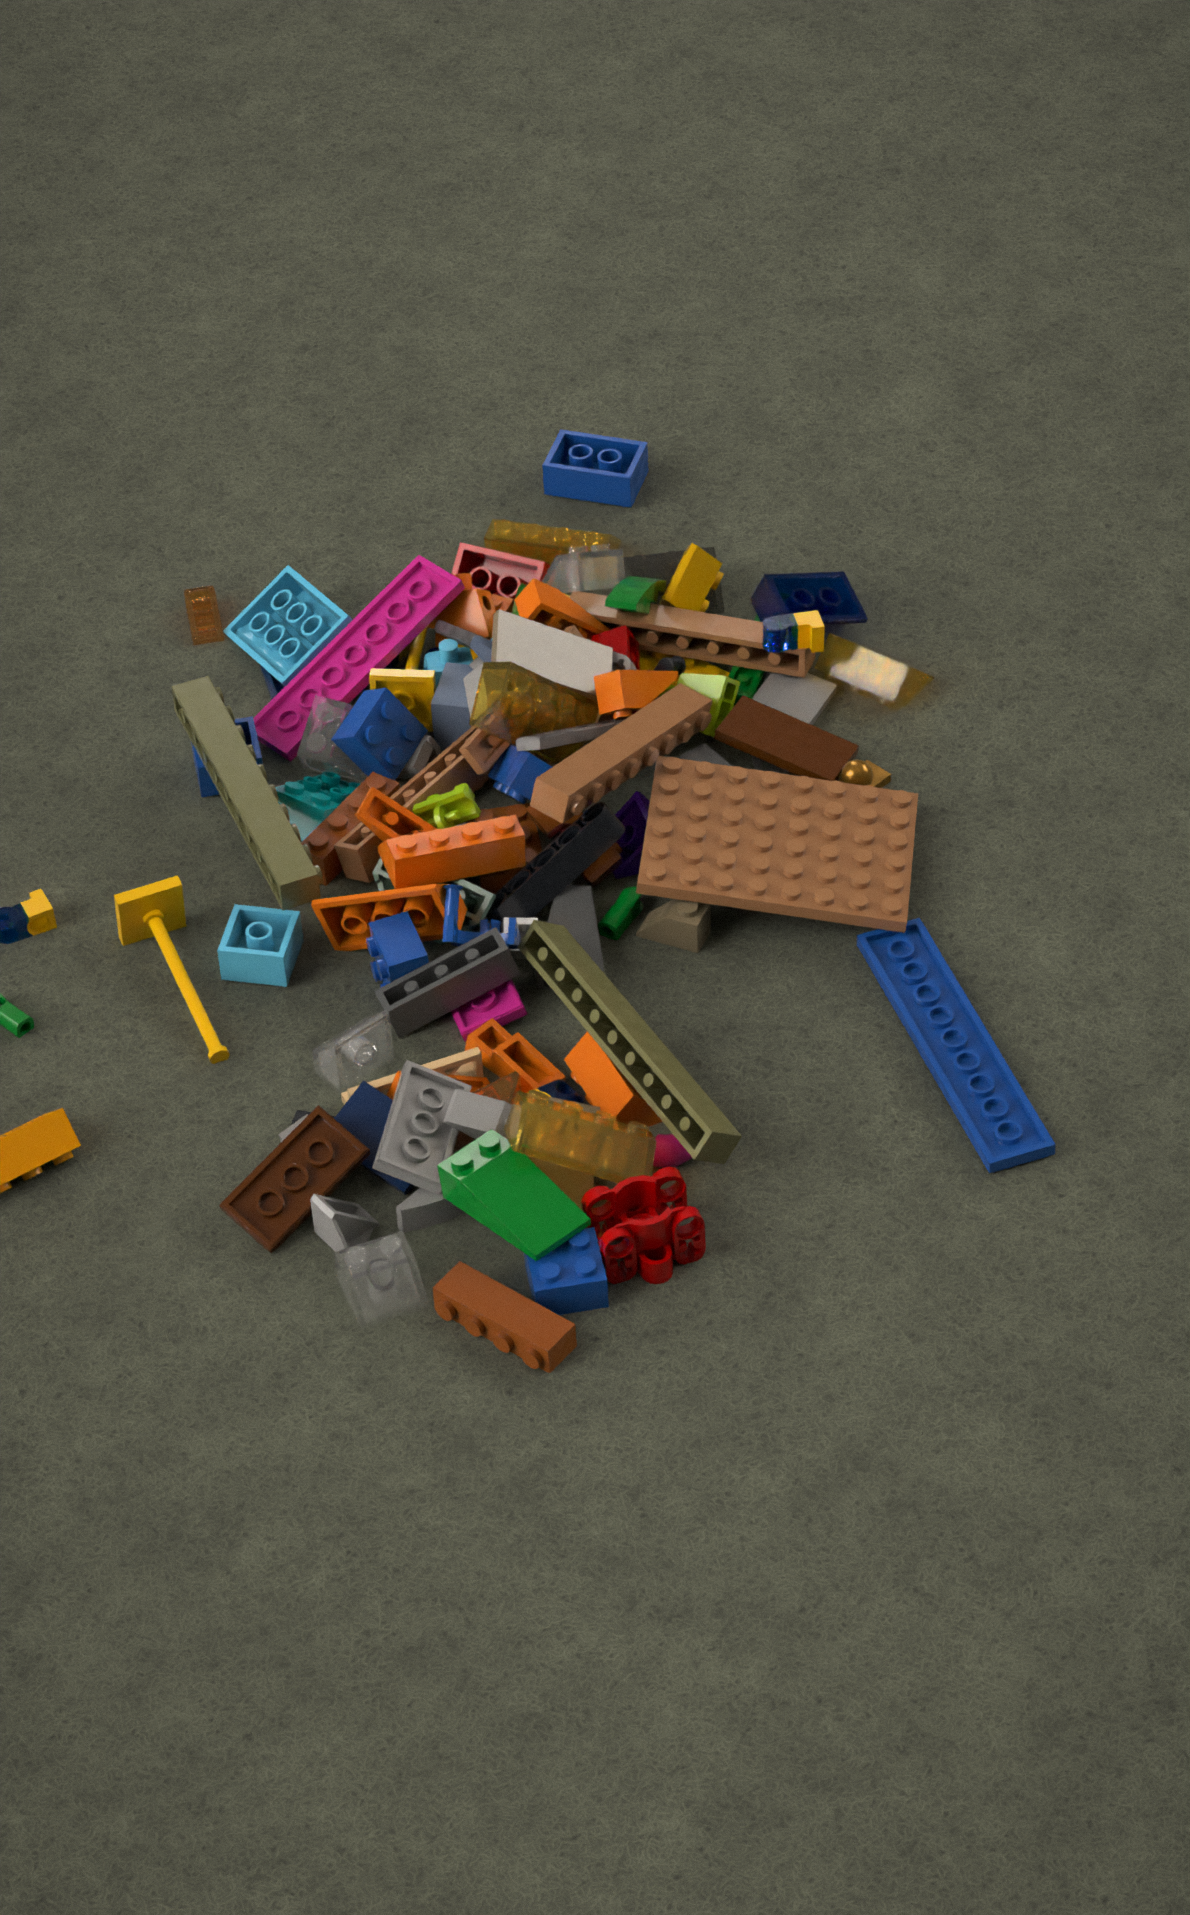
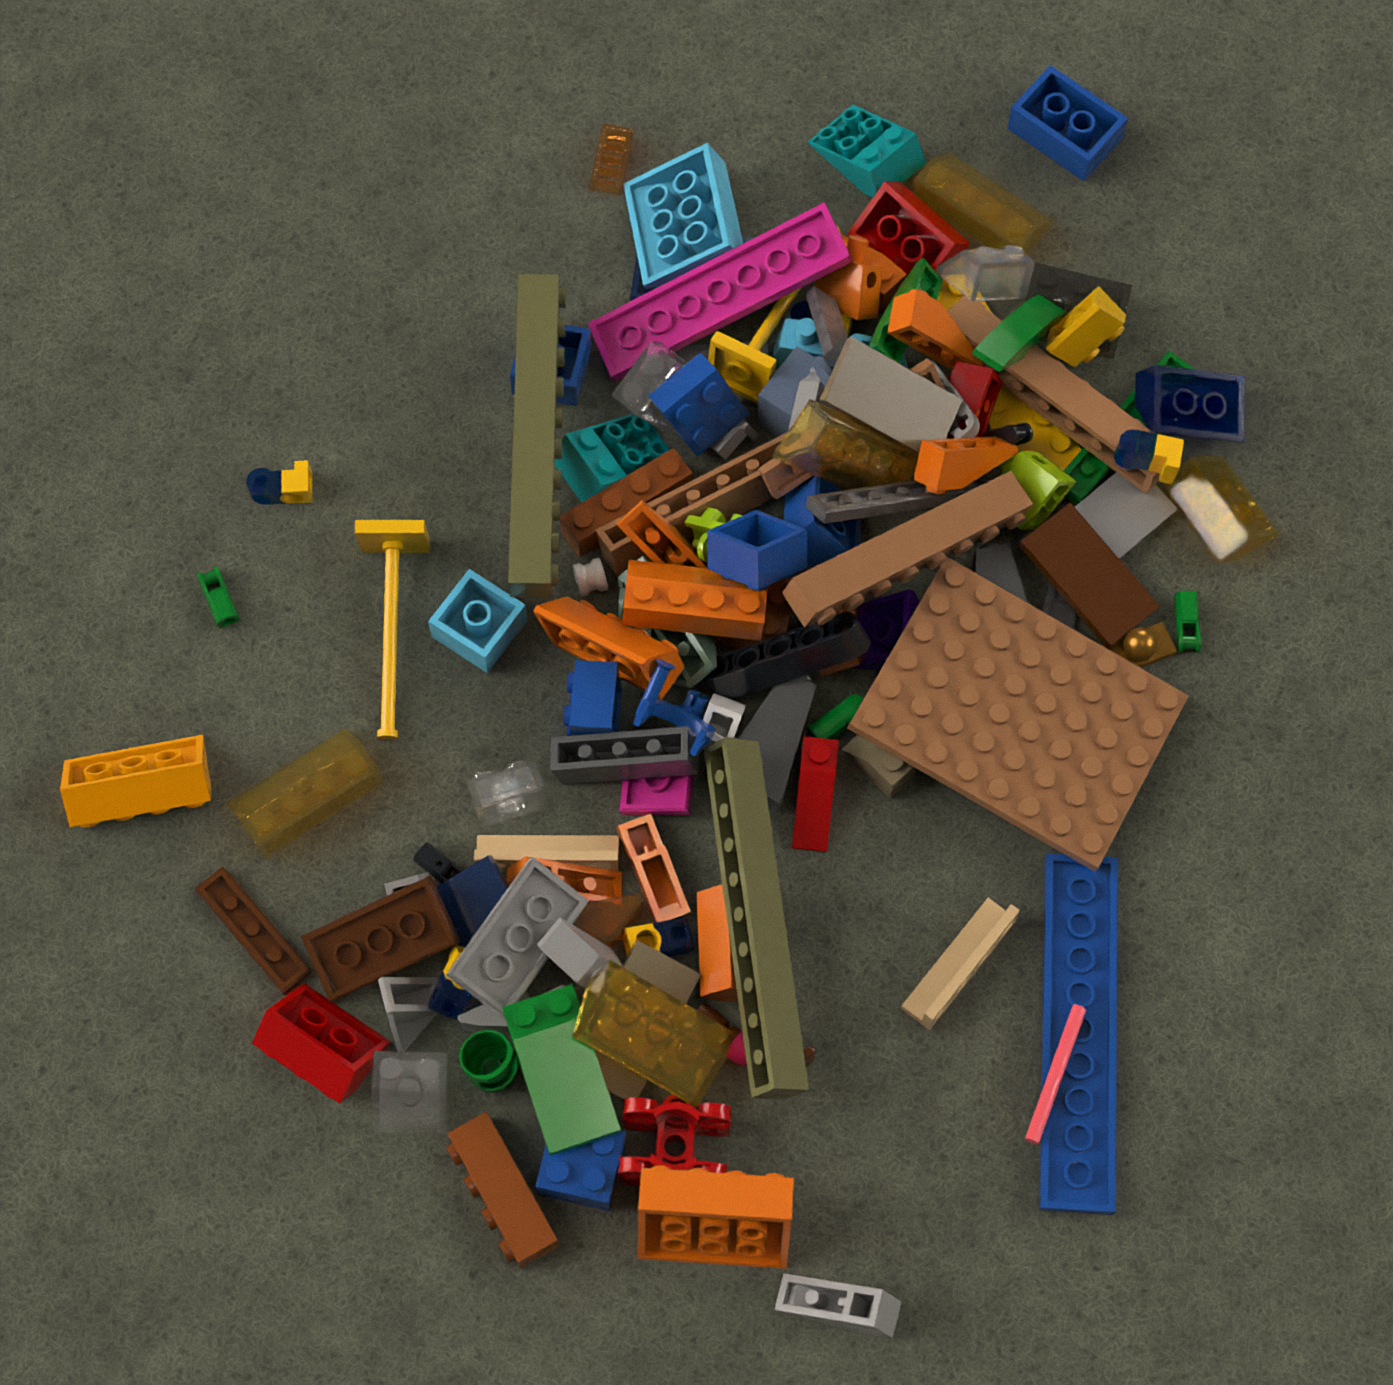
camera: 20 degrees right, 25 degrees up
(168, 1115) = (306, 792): none -> clear yellow slope
(169, 1228) = (253, 930): none -> reddish brown tile
(275, 1279) = (319, 1042): none -> red slope
(347, 884) = (590, 577): none -> white wheel
(381, 1193) = (448, 996): none -> clear blue leg
(432, 536) = (869, 149): none -> teal slope
(442, 1223) = (487, 1048): none -> green helmet
(490, 790) = (757, 550): none -> blue piece
(630, 961) = (815, 794): none -> red slope
(709, 1253) = (714, 1217): none -> orange slope
(823, 1032) = (959, 962): none -> tan fence
(855, 1287) = (839, 1304): none -> light grey slope
(888, 753) = (1187, 618): none -> green bar
(950, 1070) = (1055, 1074): none -> coral bar

